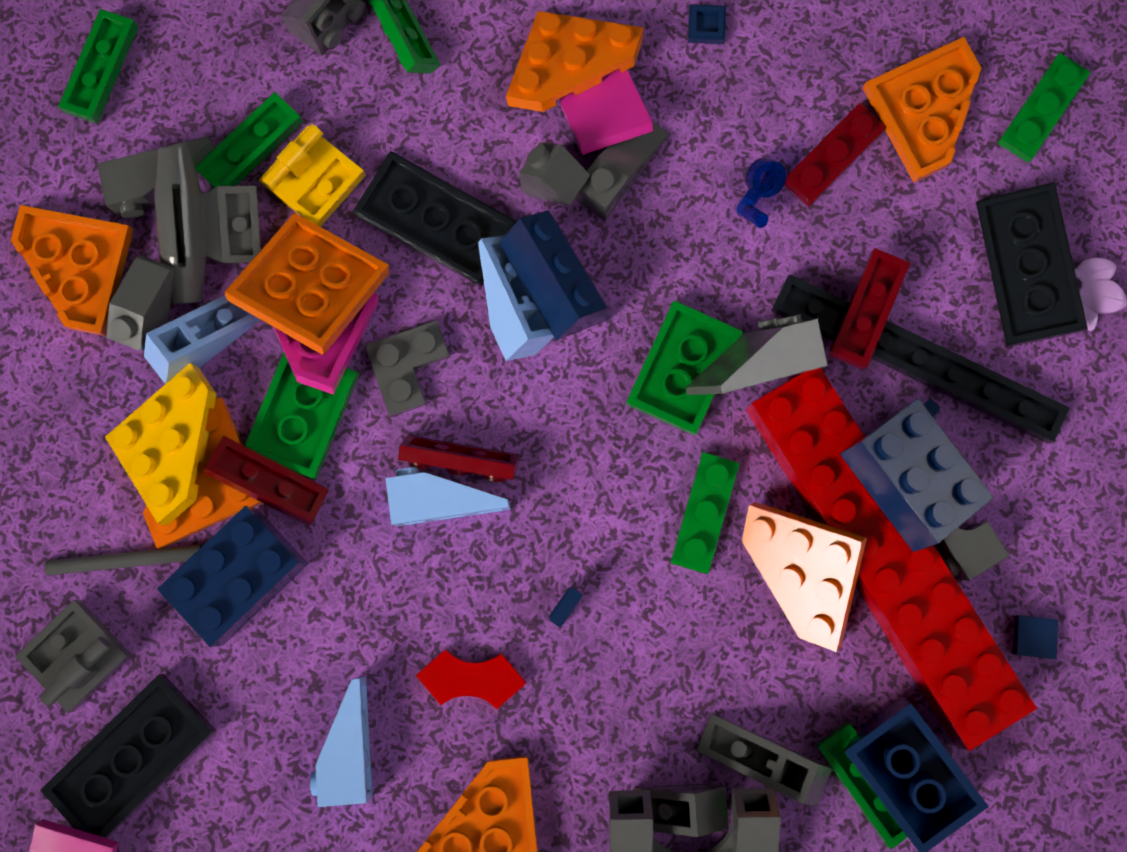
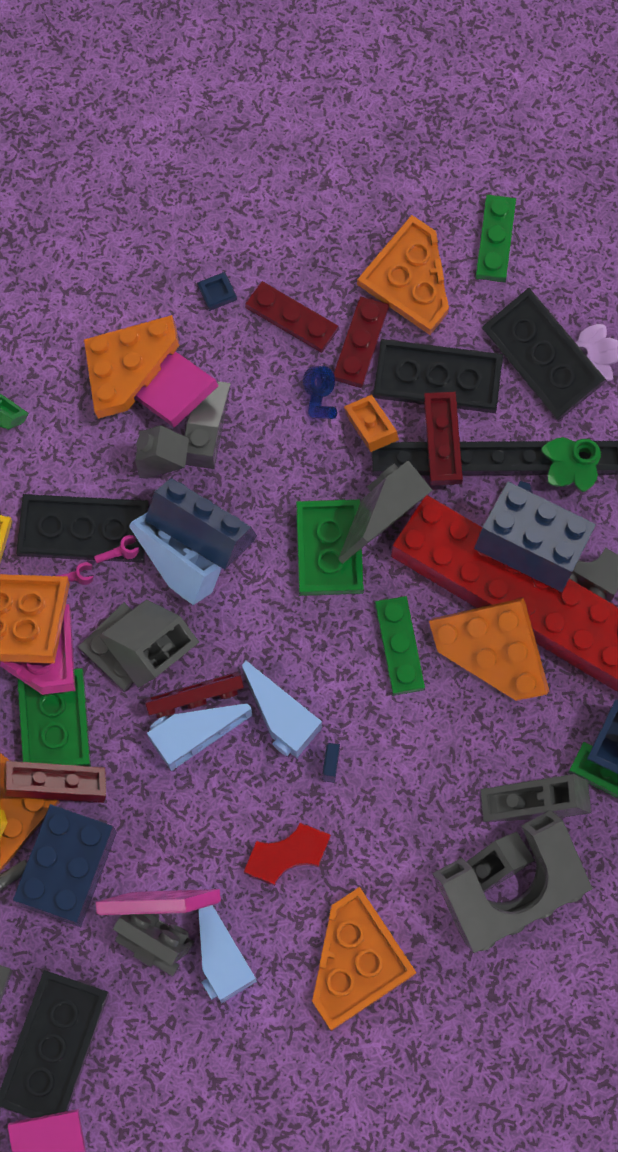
camera: 30 degrees left, 10 degrees down
(283, 701) = (153, 940): none -> dark grey plate
(301, 674) = (158, 902): none -> dark pink tile
(400, 266) = (75, 576): none -> dark pink hand
(436, 379) = (148, 641): none -> dark grey slope
(457, 263) = (119, 551): none -> dark pink hand
(540, 533) = (285, 718): none -> light blue slope
(773, 91) = (291, 316): none -> dark red plate
(798, 252) = (371, 423): none -> orange plate
(881, 216) = (413, 369): none -> black tile
(995, 409) = (569, 466): none -> green plate

